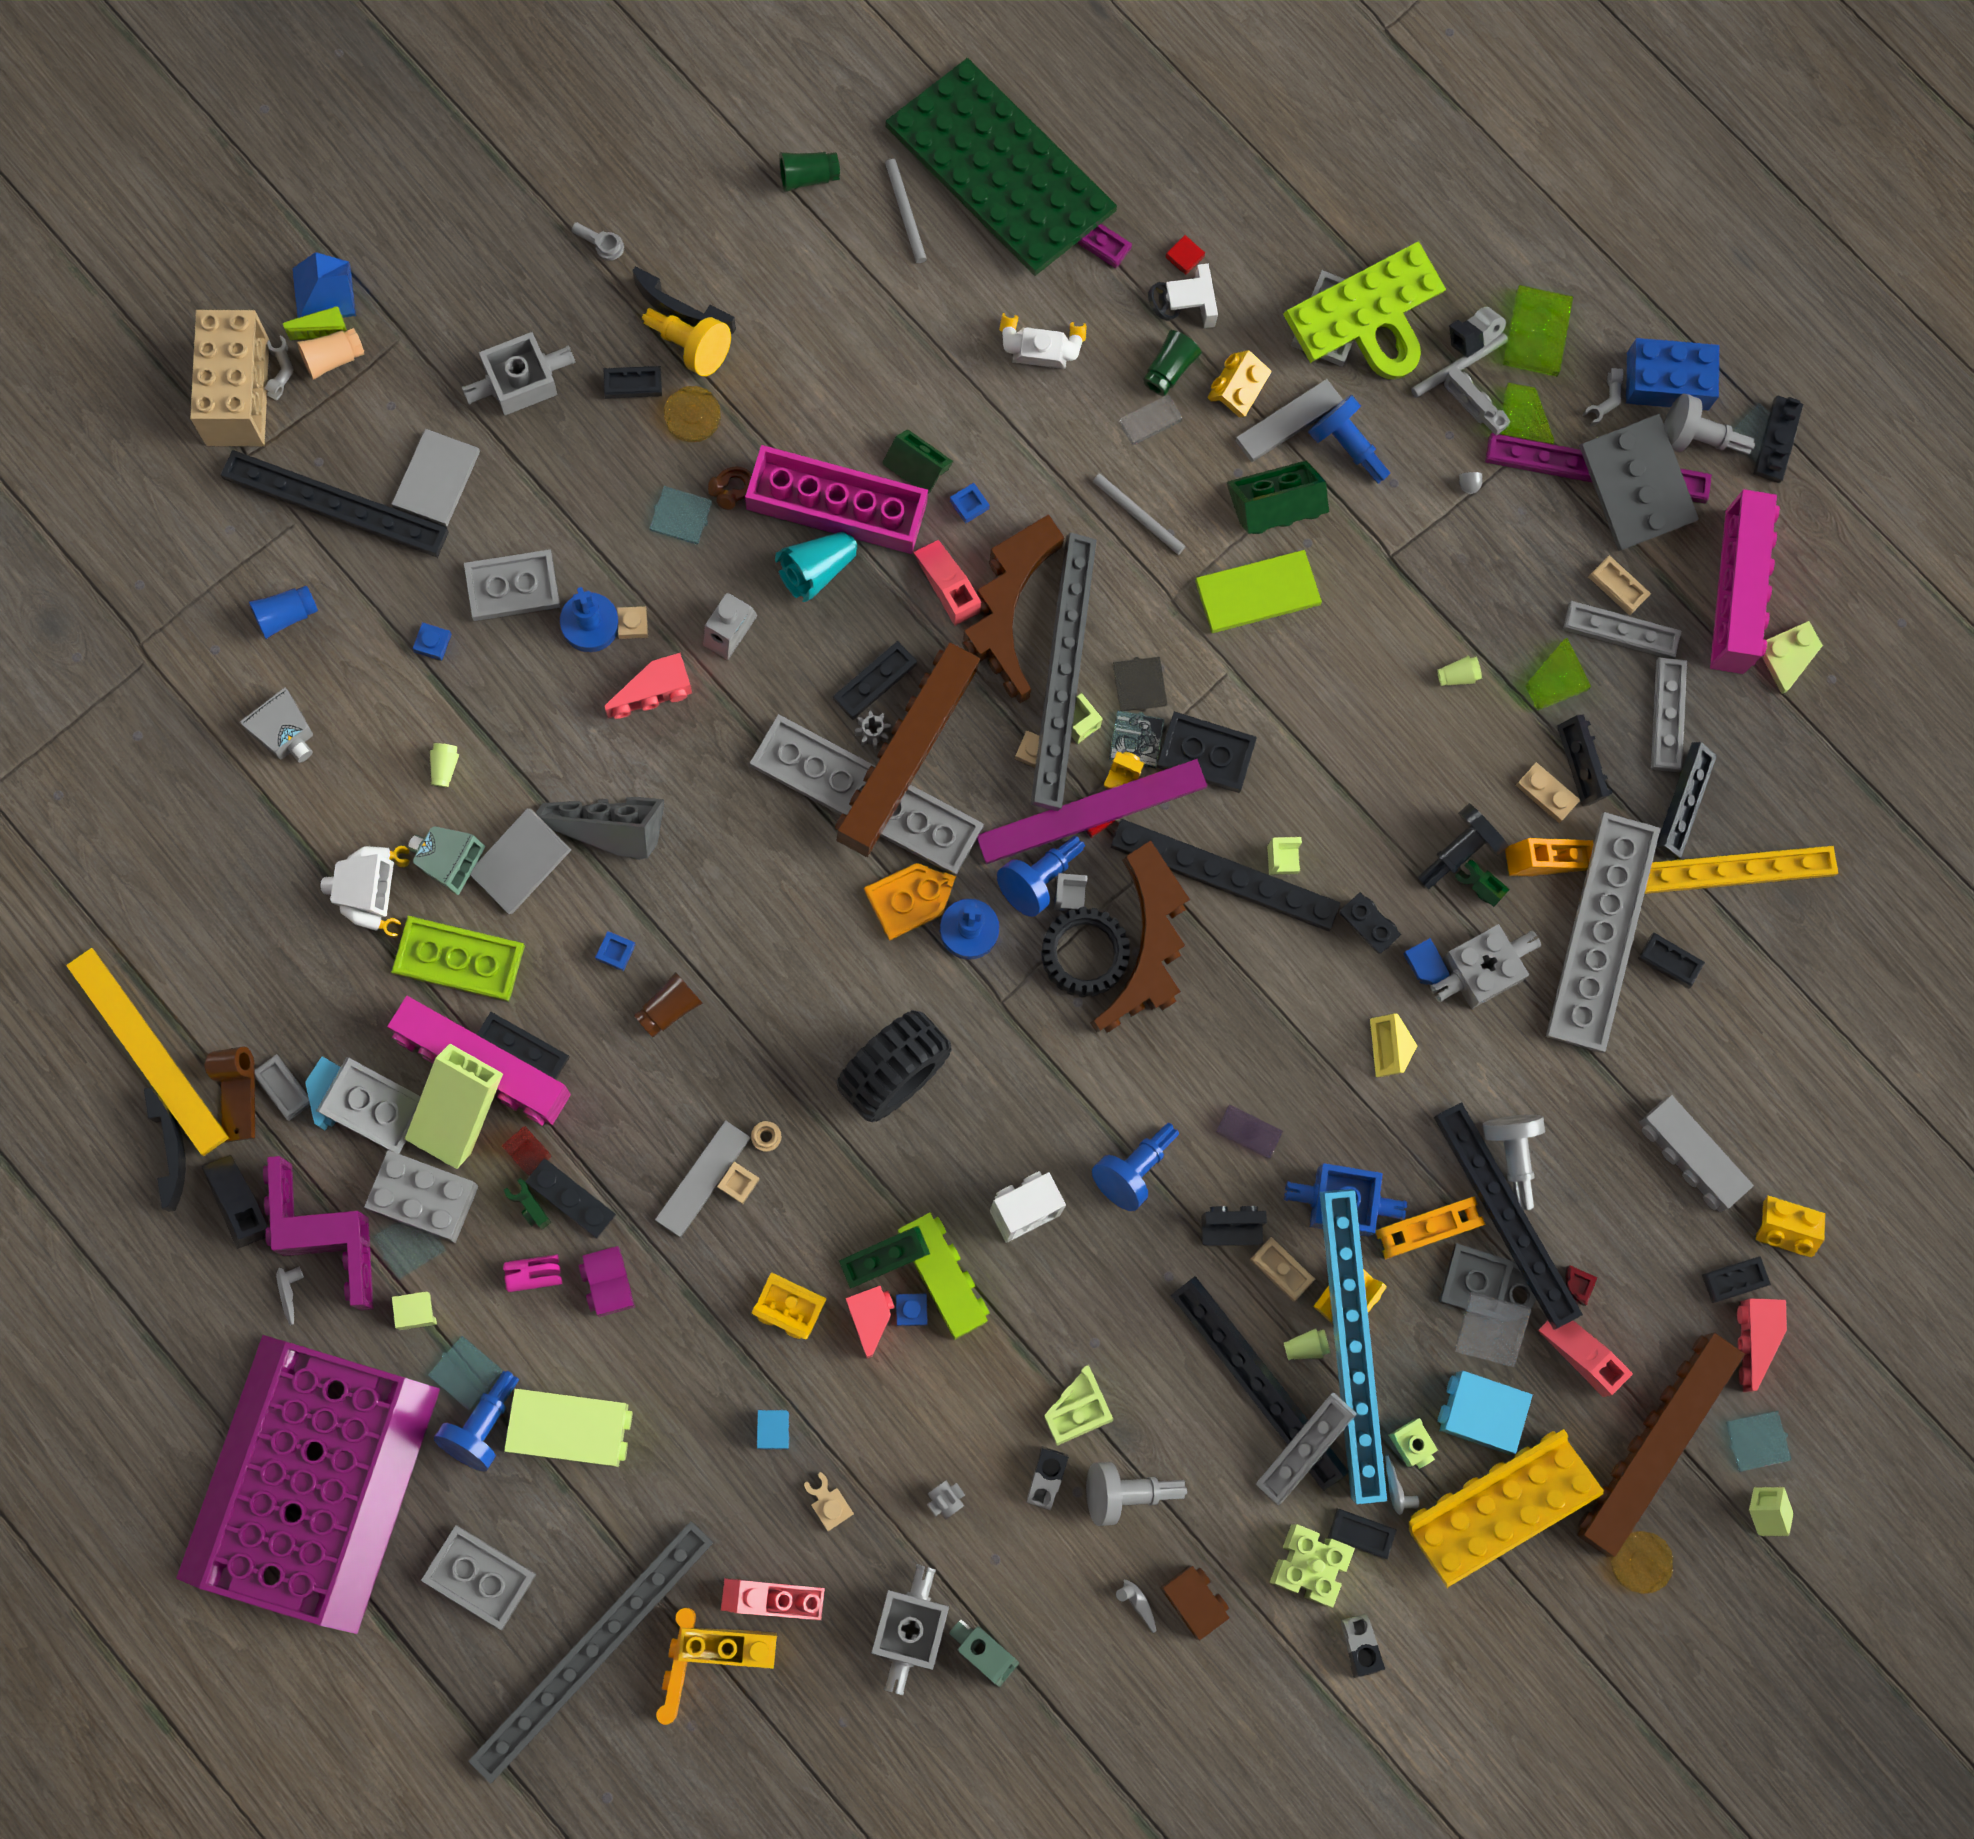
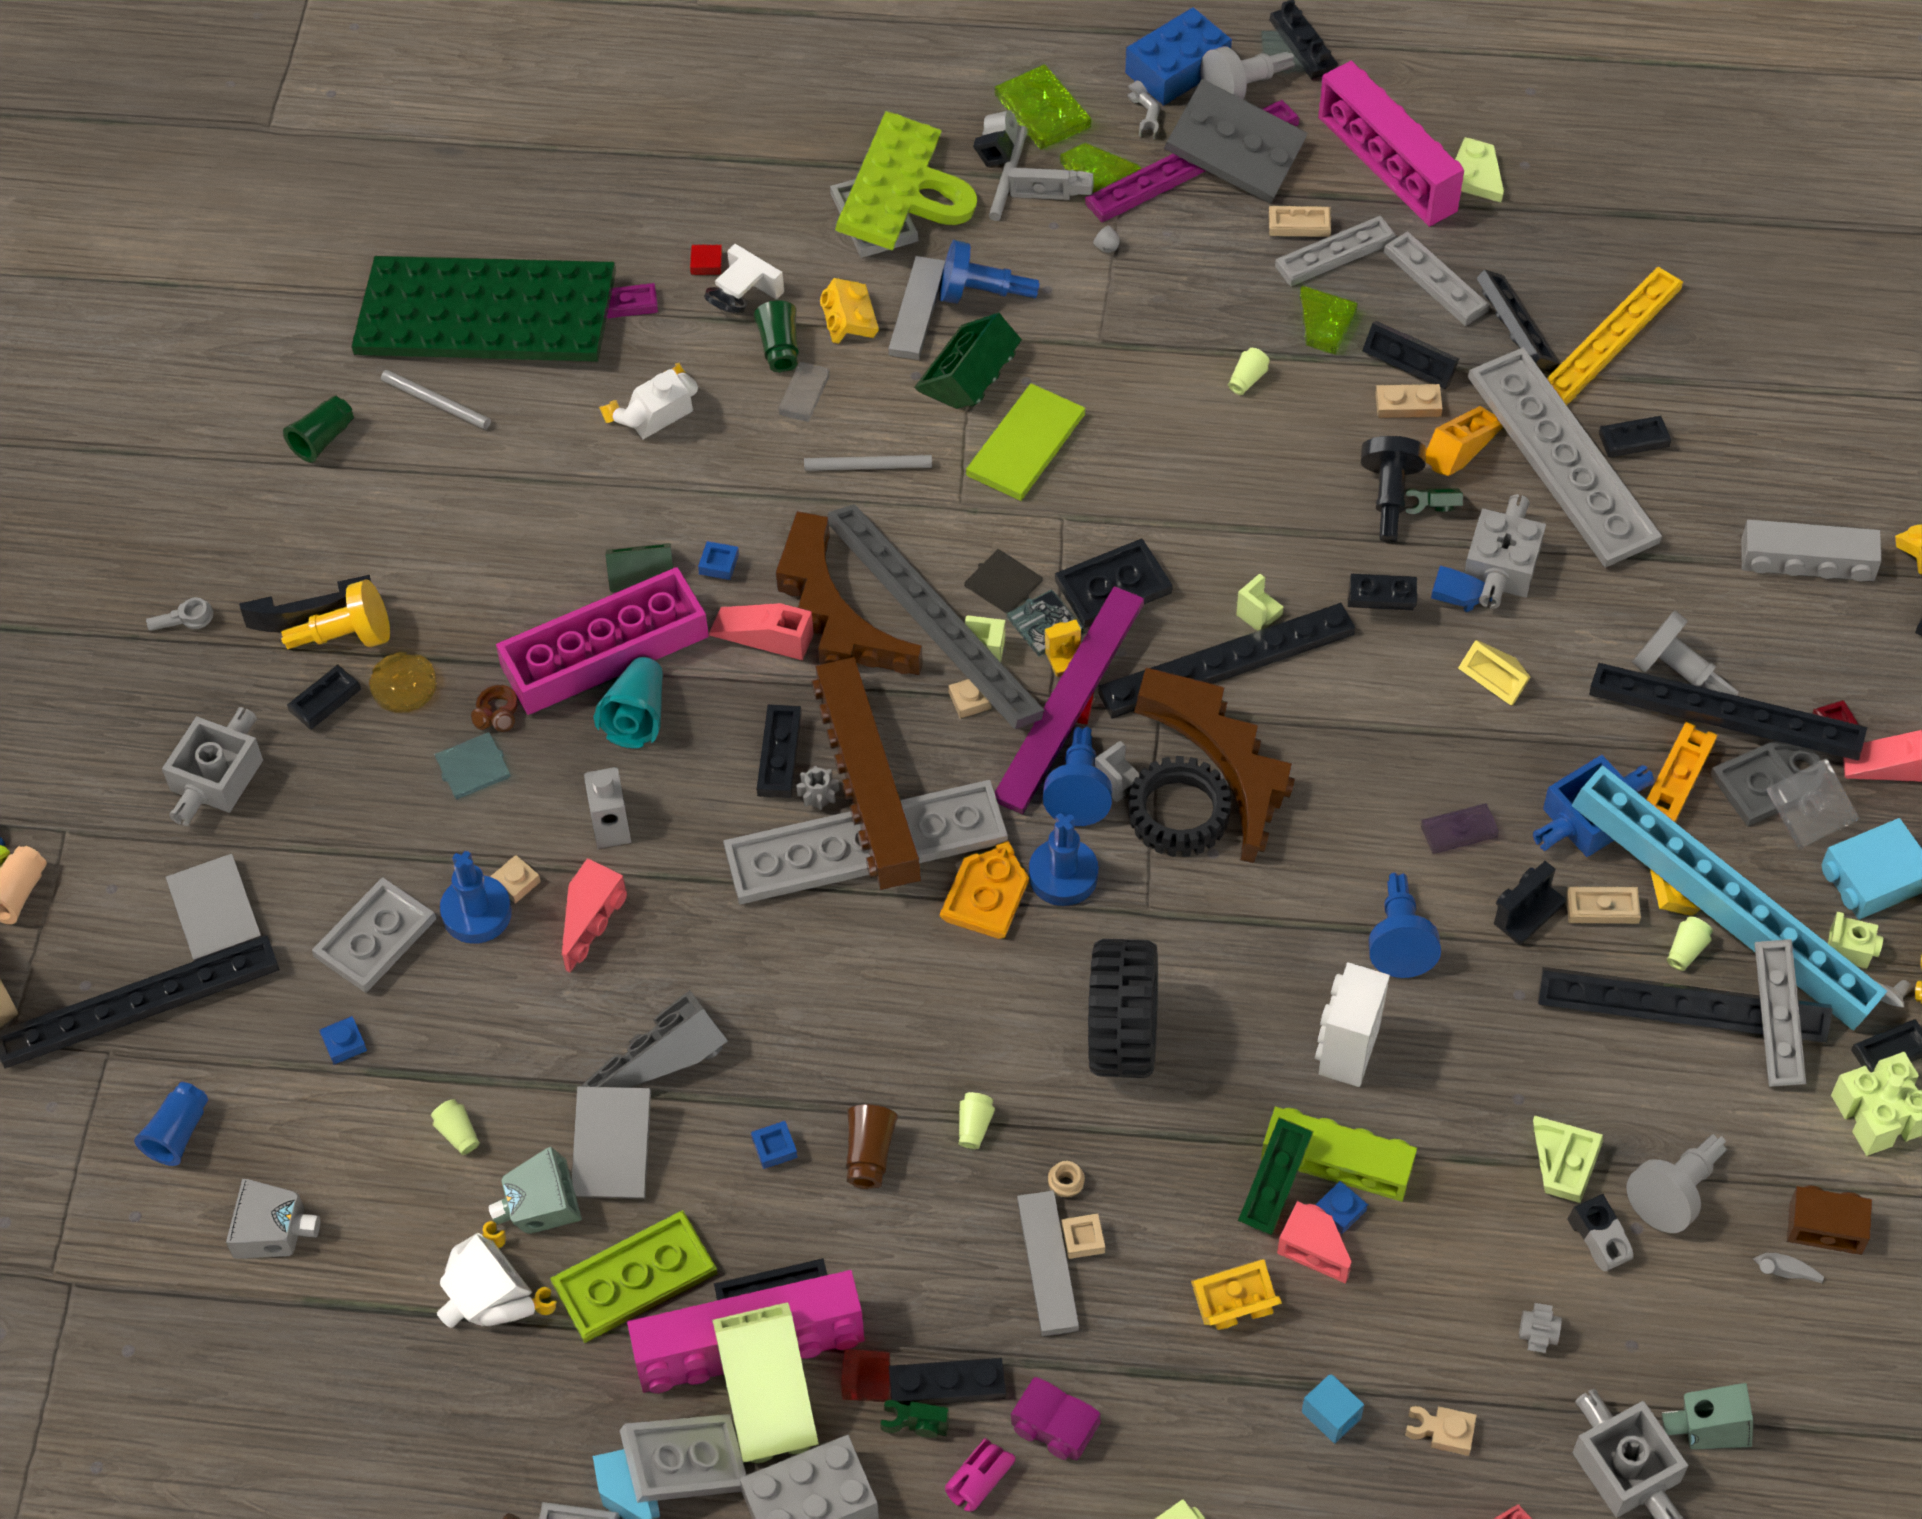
camera: 30 degrees left, 20 degrees down
(750, 1045) = (974, 1119): none -> yellowish green cone

